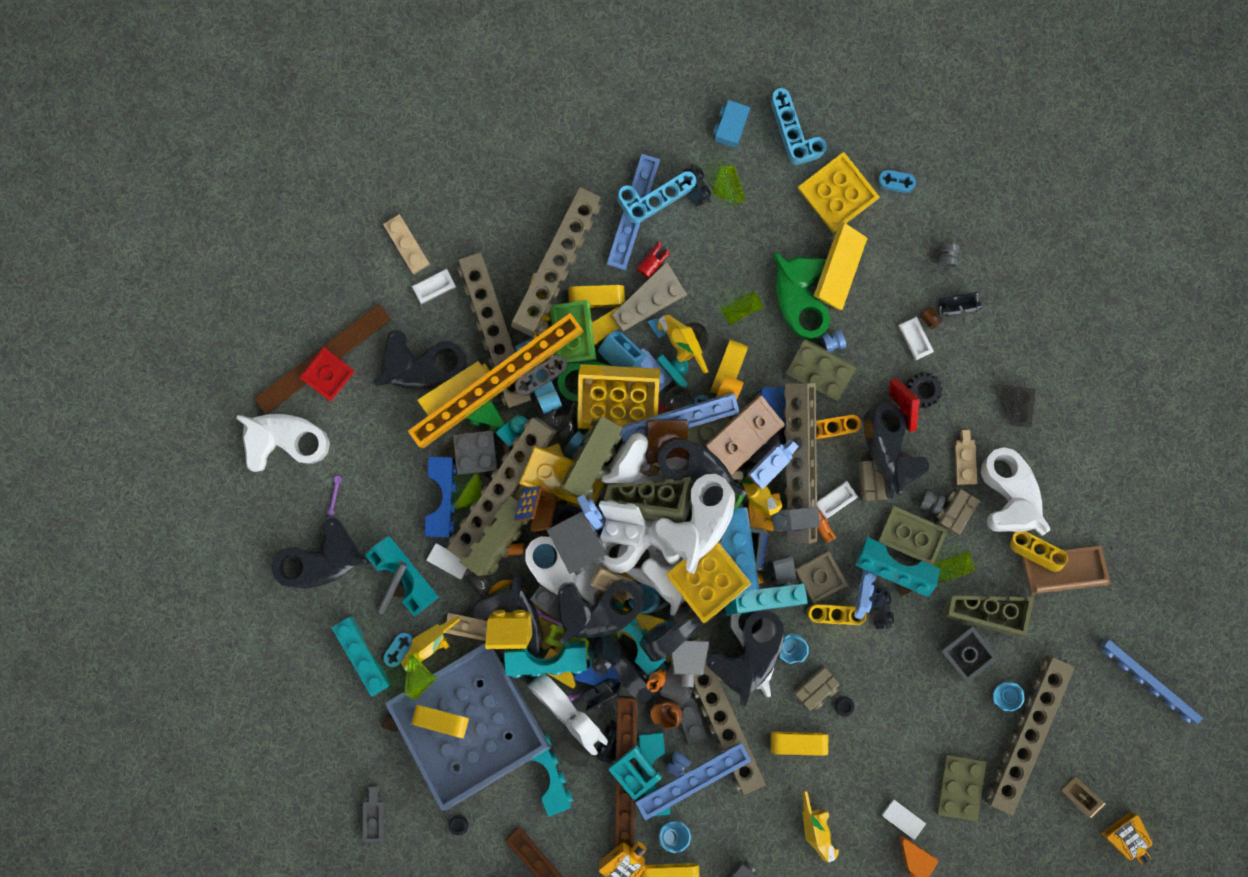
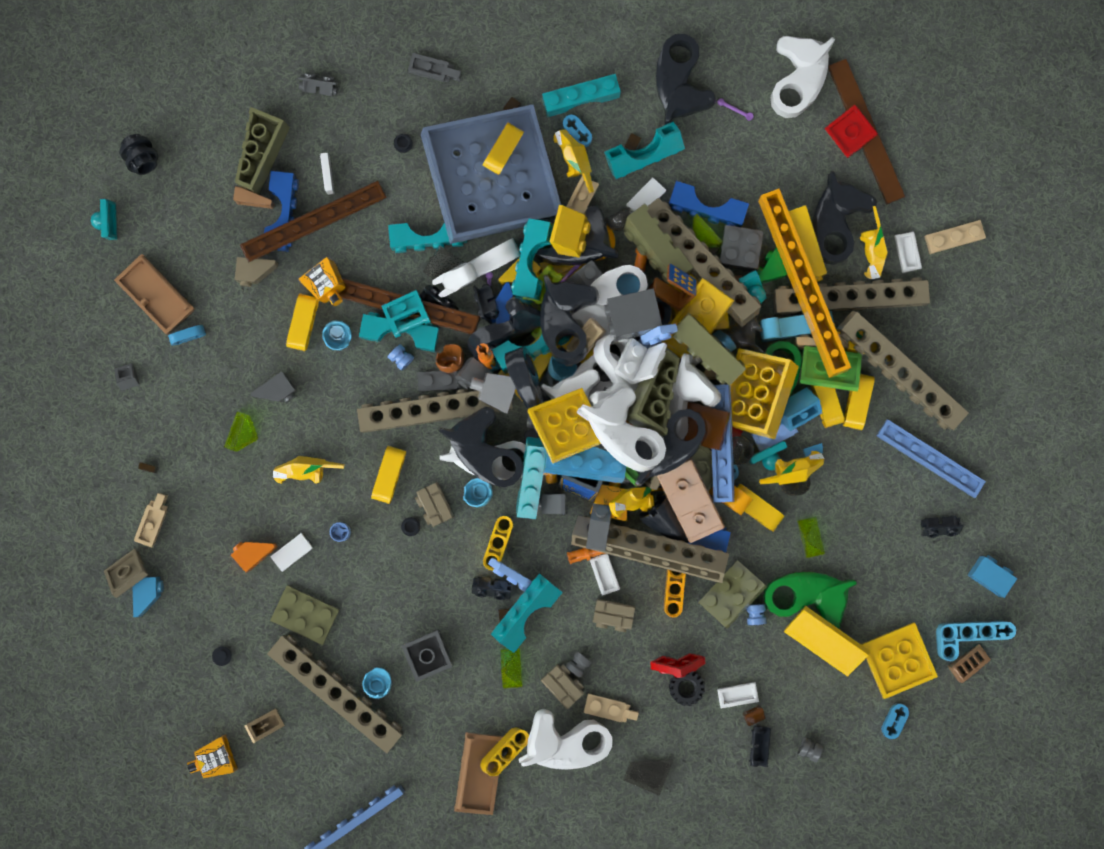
camera: 105 degrees right, 0 degrees up
(392, 587) = (635, 138): dark grey bar -> none
(417, 678) = (547, 139): clear neon green slope -> none
(440, 319) = (874, 249): none -> yellow animal
(556, 371) = (788, 315): dark grey beam -> none
(649, 470) = (683, 400): dark brown piece -> none
(650, 262) = (877, 461): red hinge -> none
(653, 296) = (843, 452): dark tan wing -> none
(658, 194) = (942, 485): medium azure beam -> none
(693, 781) = (383, 365): medium blue plate -> none
(729, 185) = (933, 557): clear neon green slope -> none
(772, 463) = (656, 519): light blue hinge -> none
(821, 577) = (536, 539): dark tan tile -> none
(825, 119) = (974, 668): none -> medium nougat slope
(873, 776) = (340, 532): none -> medium blue wheel
(885, 448) = (642, 633): black animal -> none
(912, 535) = (551, 636): olive plate -> none
(995, 613) = (456, 695): olive wedge -> none
(1026, 860) = (221, 656): none -> black plate

